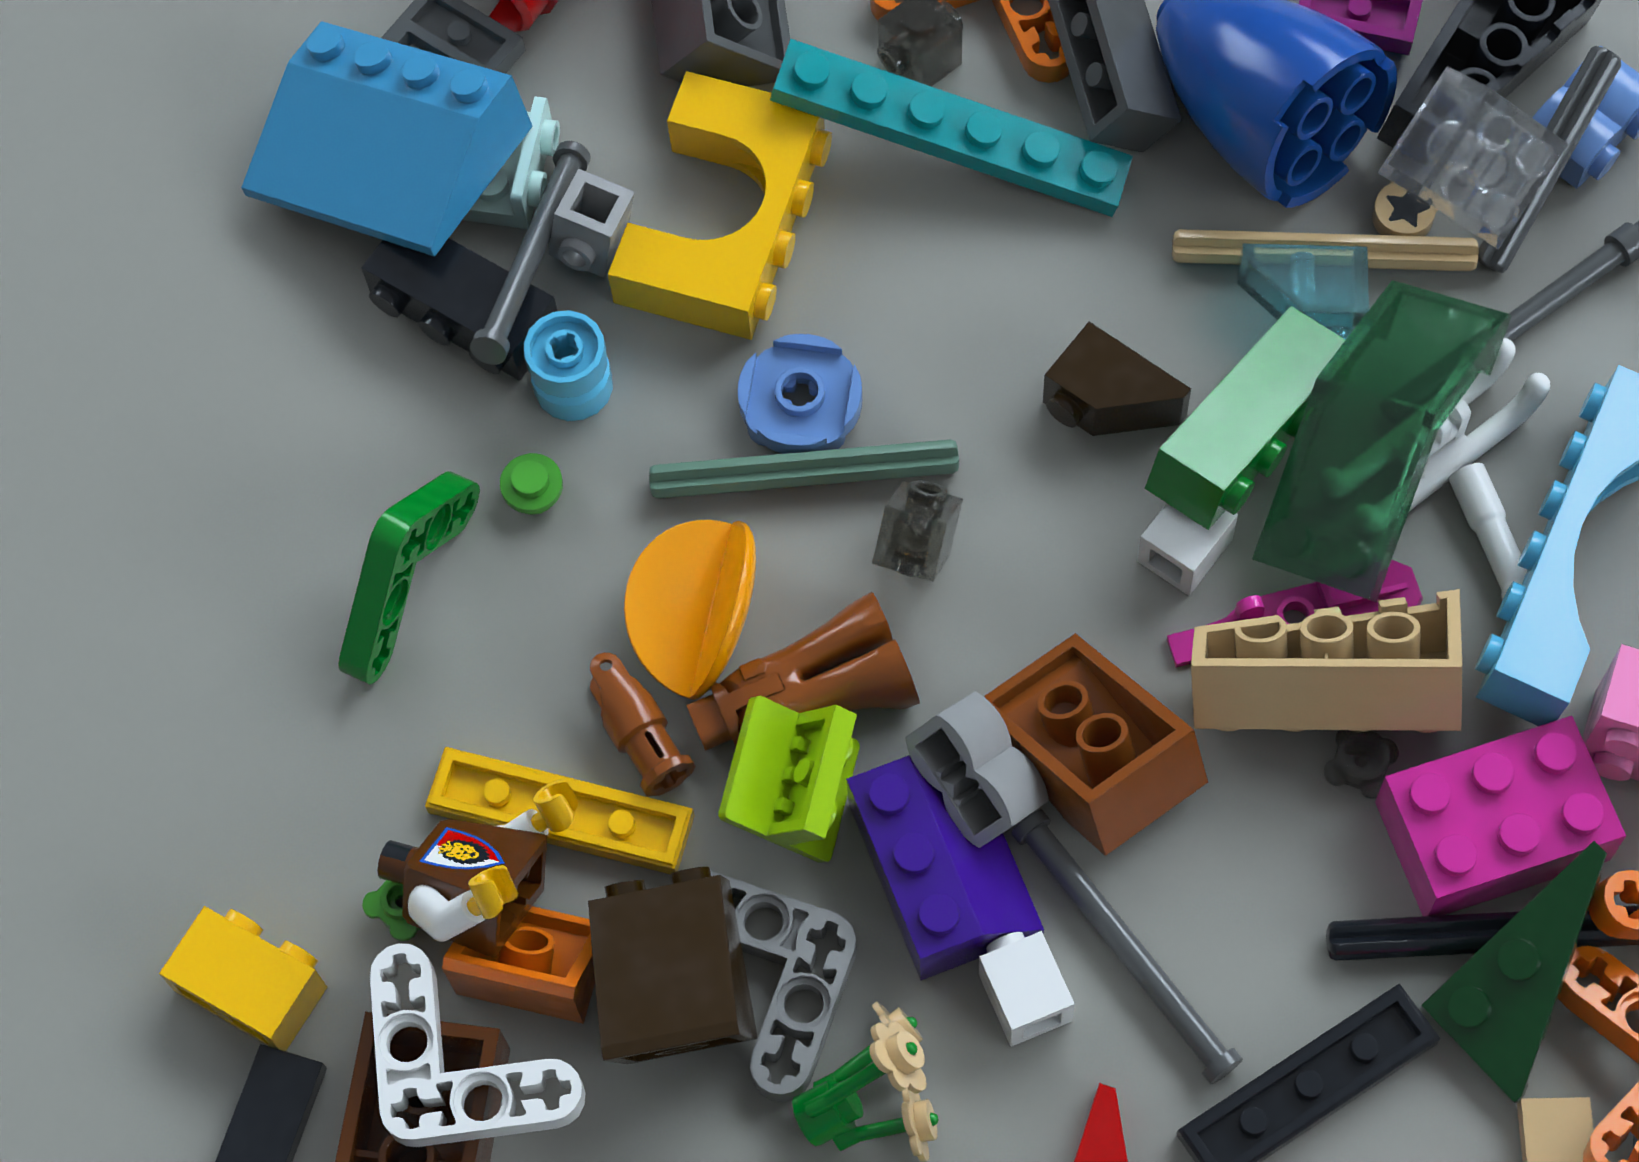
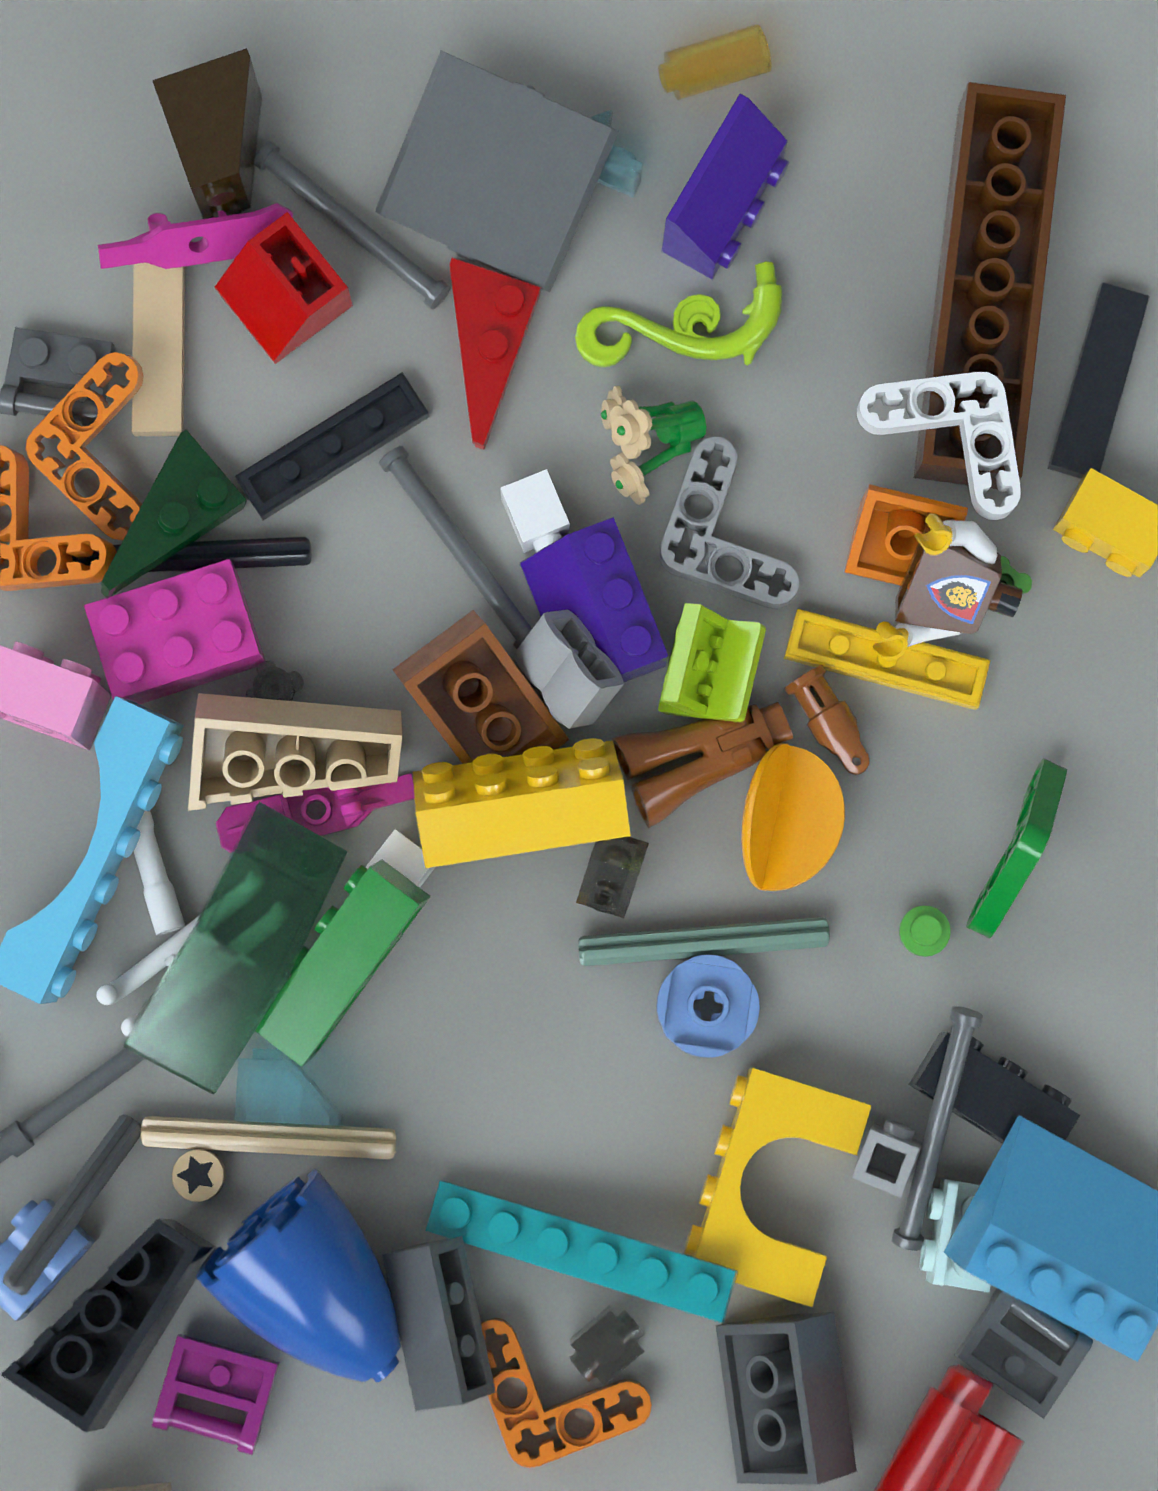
camera: 170 degrees right, 15 degrees up
(568, 365) = (900, 1027): medium azure wheel -> none
(669, 968) = (798, 509): dark brown slope -> none
(1037, 597) = (520, 802): none -> yellow brick
(1111, 387) = (455, 1005): dark brown slope -> none
(1473, 157) = (139, 1190): clear brick -> none

